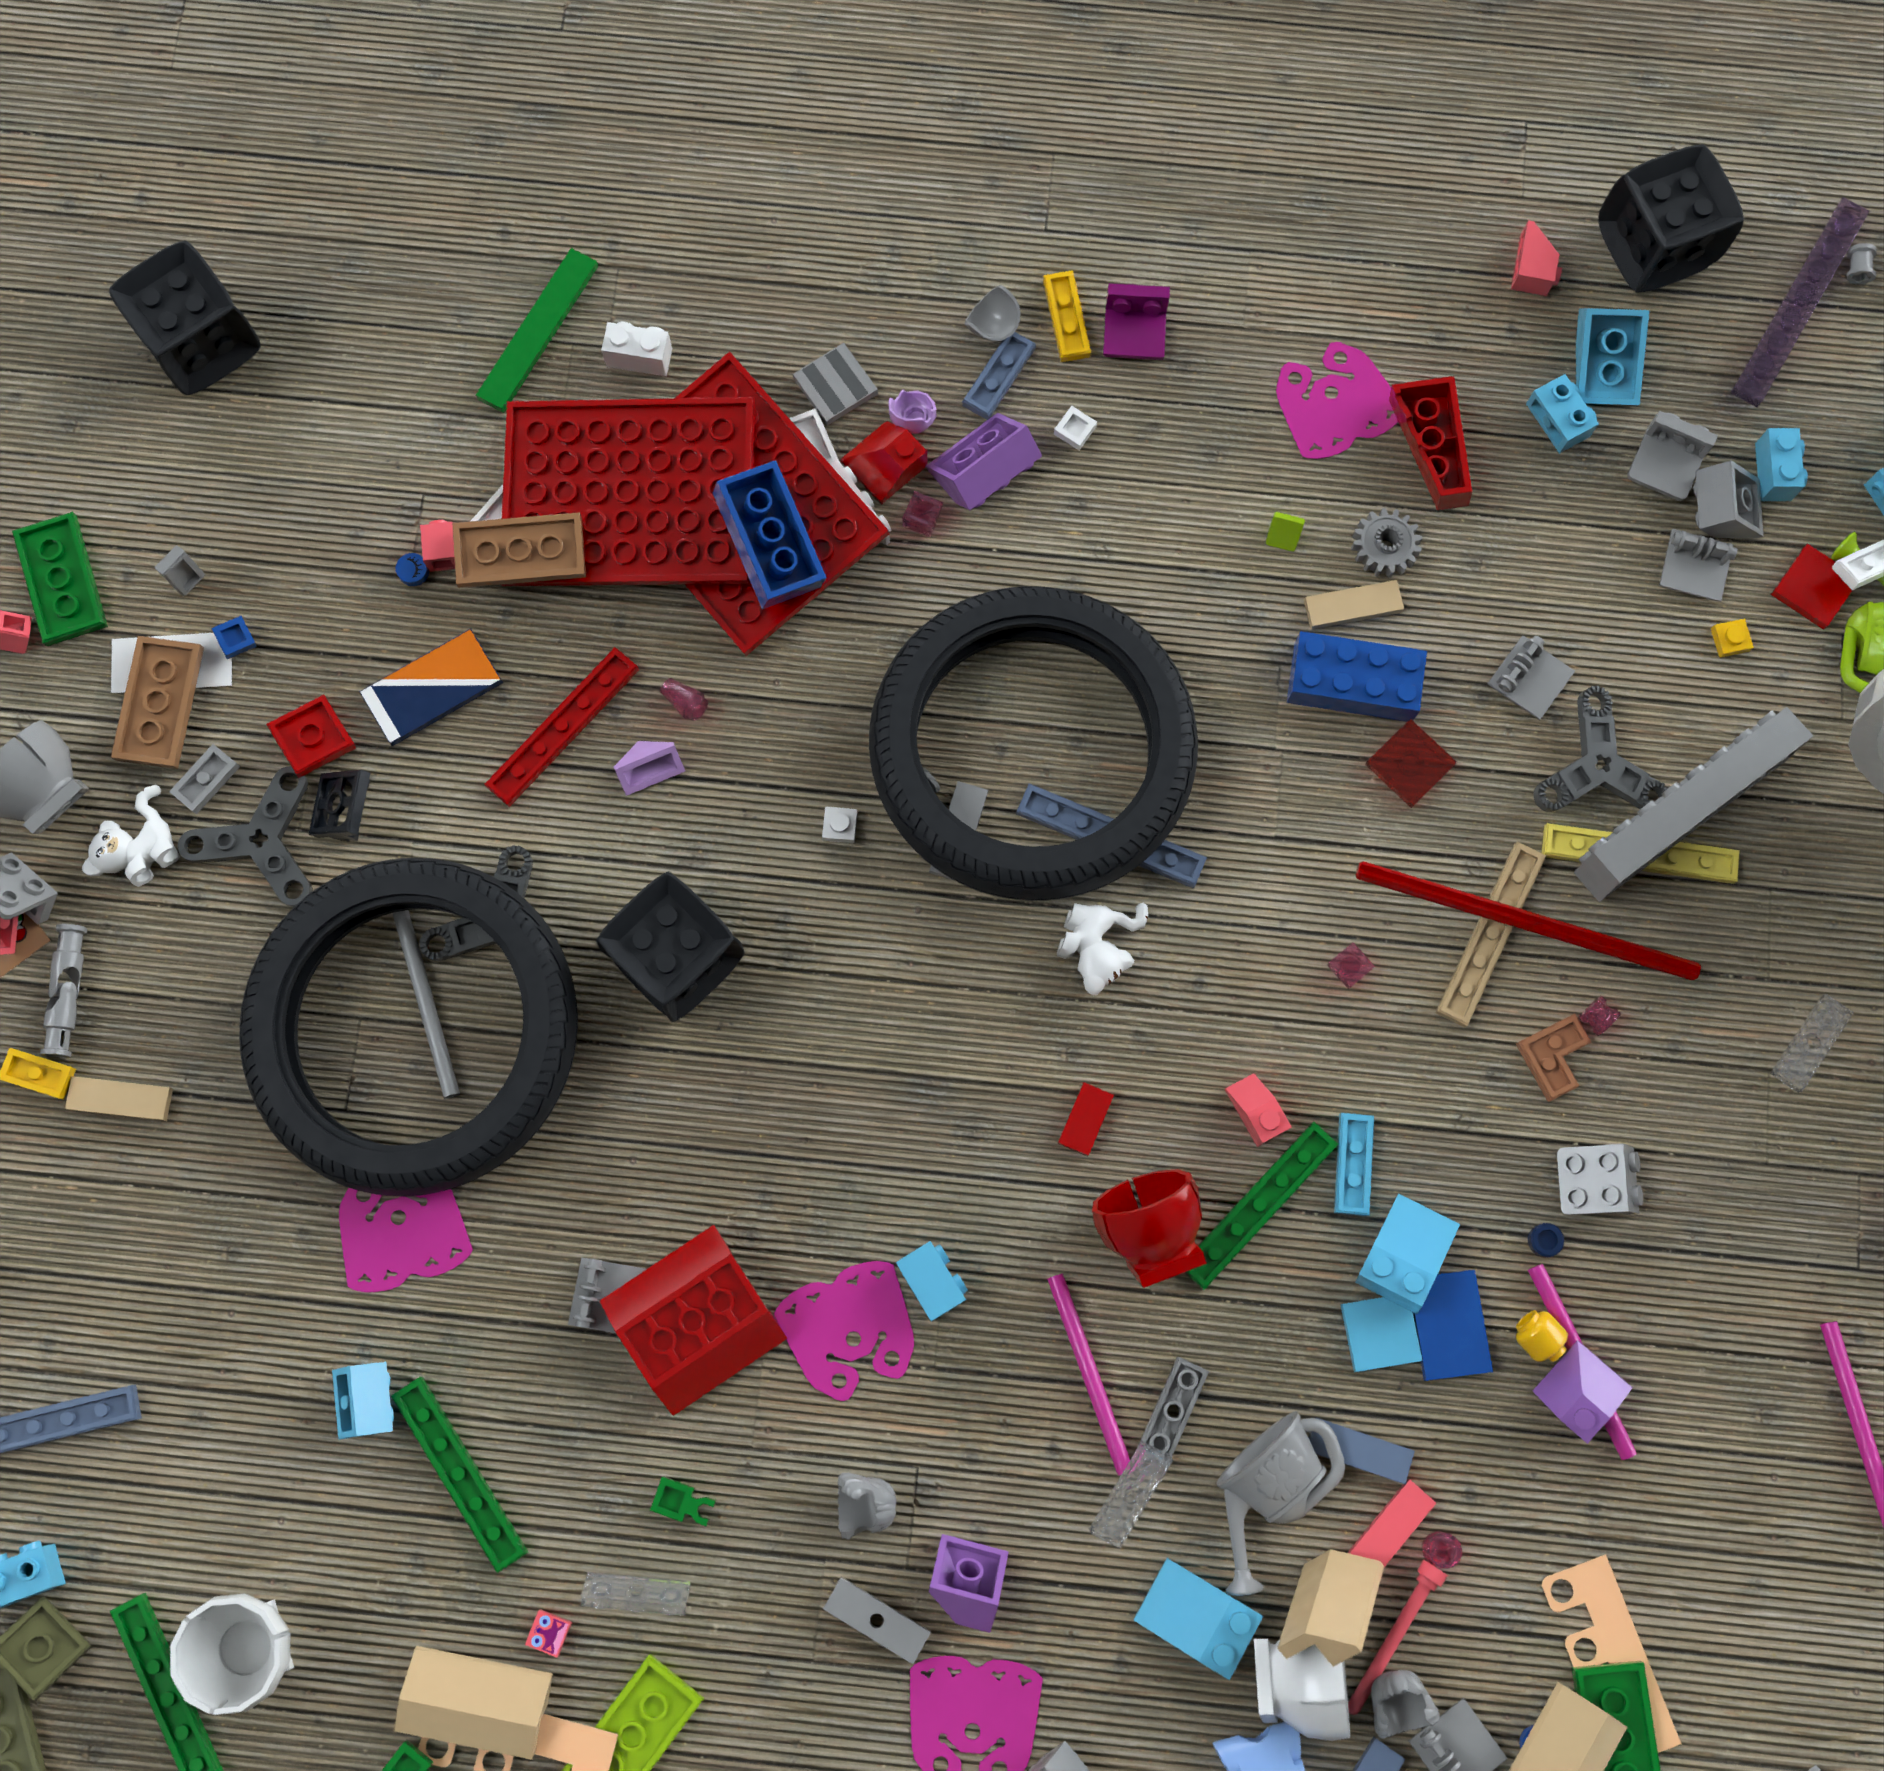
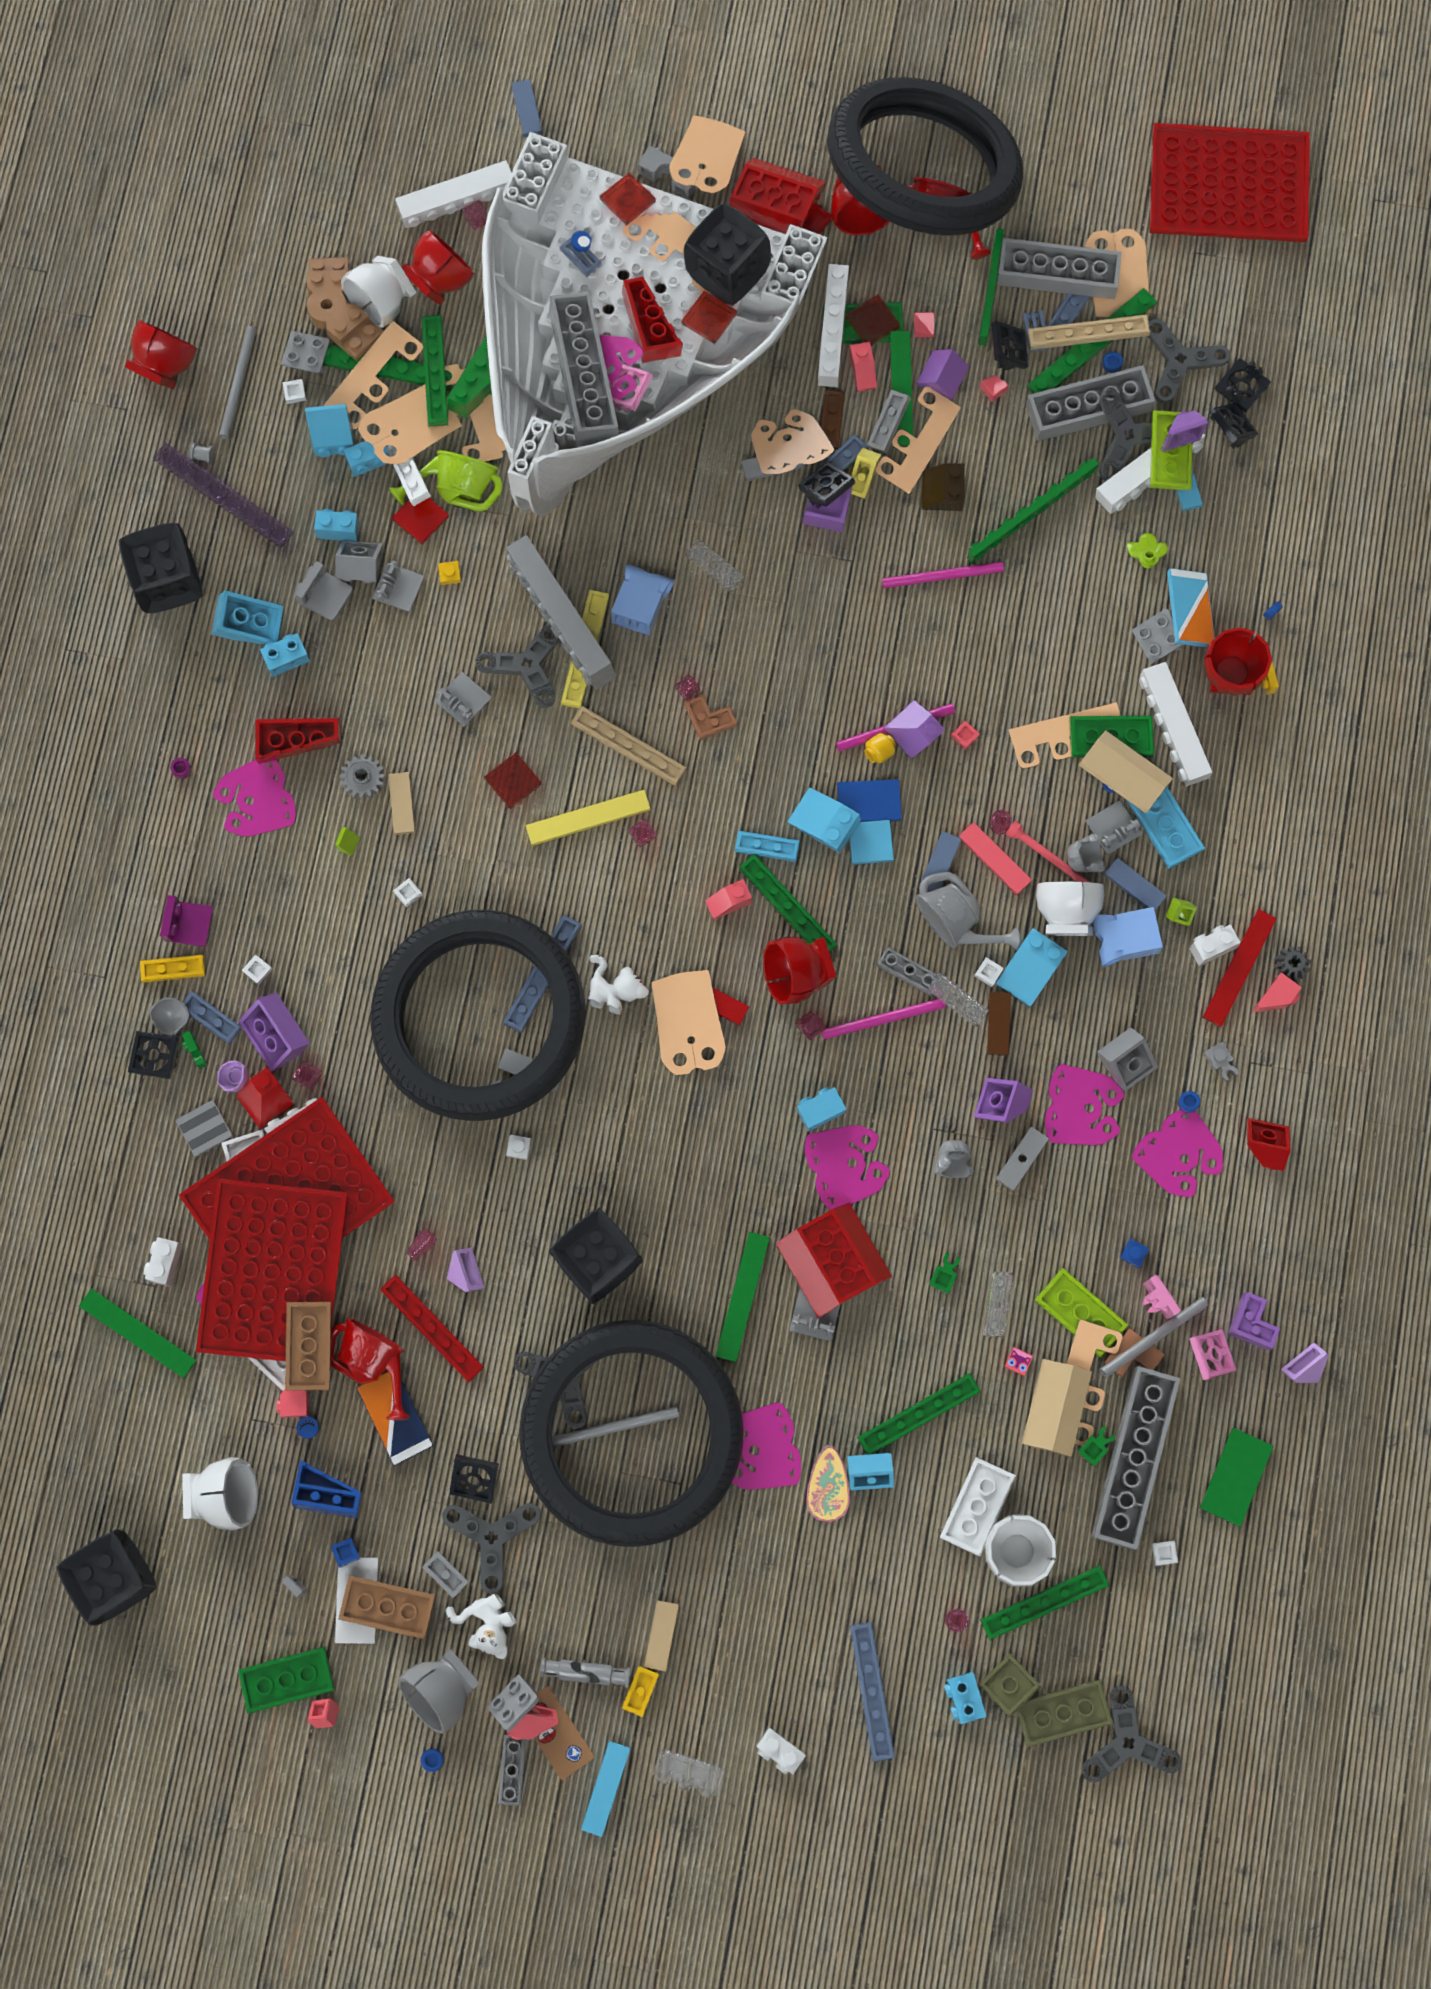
camera: 85 degrees left, 0 degrees up
(147, 1551) = (953, 1622): none -> clear pink wheel
(303, 457) = (222, 1494): none -> white plate
(311, 736) = (422, 1499): red tile -> none
(313, 598) = (324, 1494): none -> blue wedge
(315, 1579) = (978, 1506): none -> white tile
(339, 1335) = (828, 1486): none -> shield
(513, 635) = (367, 1358): none -> red piece
(630, 1180) = (742, 1297): none -> green tile
(769, 534) = (320, 1172): blue brick -> none
(934, 282) = (140, 1039): none -> black piece
(952, 352) = (190, 1045): none -> green plate
(1066, 1255) = (810, 1025): none -> clear pink slope
(1072, 1059) = (687, 1009): none -> light nougat piece
(1099, 1567) = (998, 1023): none -> reddish brown tile
(1183, 1545) = (989, 972): none -> white plate
(1216, 627) = (407, 892): none -> white tile
(1332, 1606) = (1029, 885): tan slope -> none
(1356, 676) = (452, 807): blue brick -> none
(1367, 291) = (180, 768): none -> magenta tile
(1373, 900) = (588, 817): none -> light yellow tile
(1528, 920) = (623, 723): red axle -> none
(1535, 262) = (174, 657): coral slope -> none
(1546, 1240) = (822, 738): dark blue tile -> none
(1585, 1480) = (965, 735): none -> coral tile
(1599, 1179) = (788, 702): bracket -> none
(1736, 929) = (640, 599): none -> light blue piece

